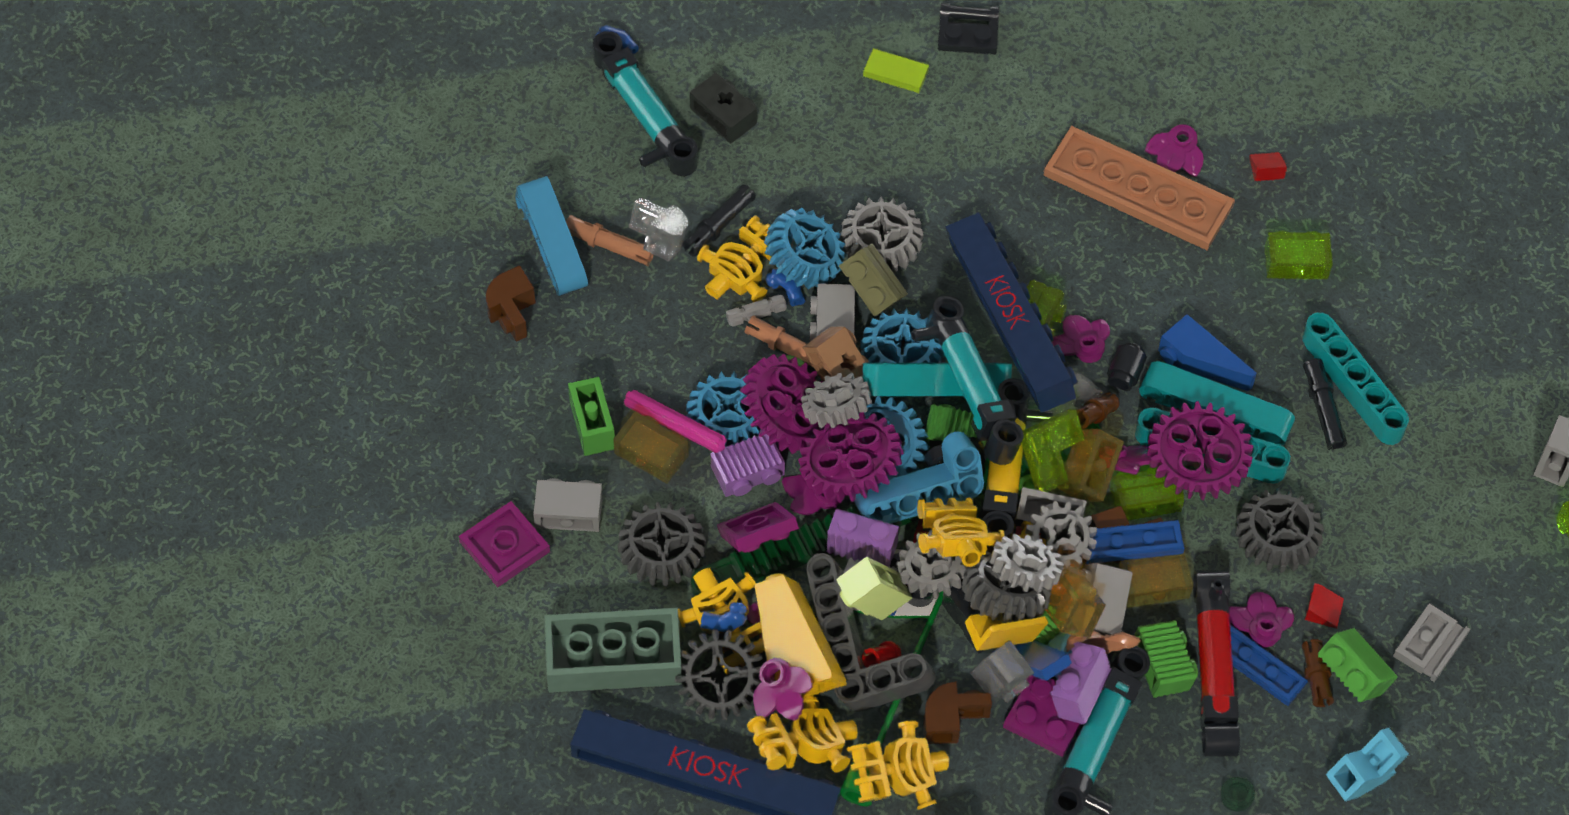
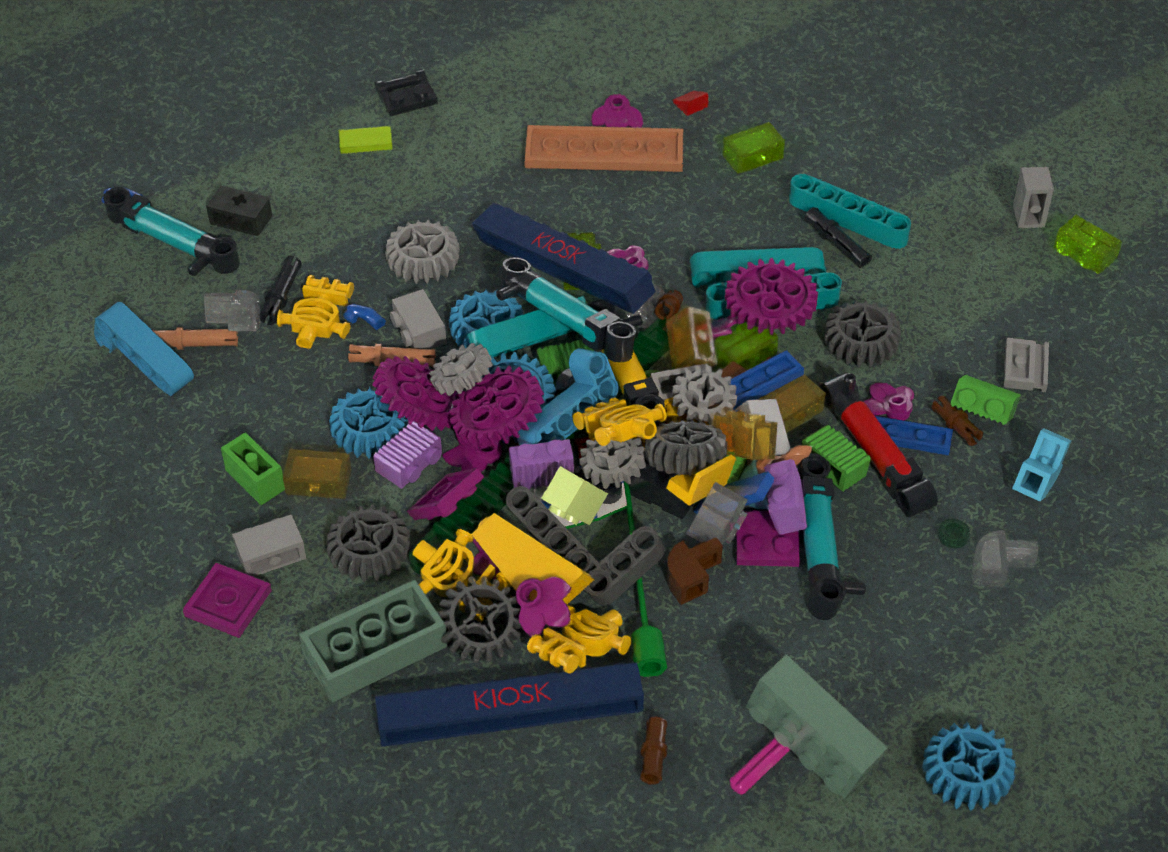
camera: 25 degrees left, 10 degrees down
(506, 297) = (130, 412): reddish brown brick -> none
(675, 421) = (337, 444): dark pink axle -> none
(727, 621) = (468, 568): blue arm -> none
(759, 308) = (354, 337): light grey axle -> none
(787, 247) = (366, 279): dark azure gear -> none
(835, 353) = (435, 339): medium nougat brick -> none
(873, 279) = (436, 279): olive brick -> none
(885, 651) = (604, 547): red pin -> none
(904, 766) = (674, 626): yellow piece -> none
(1026, 563) = (695, 417): light grey gear -> none
(1043, 447) = (651, 337): clear neon green plate -> none
(1126, 366) = (672, 268): black brick -> none
(1199, 352) = (721, 234): blue slope -> none
(1324, 606) = (928, 373): red slope -> none

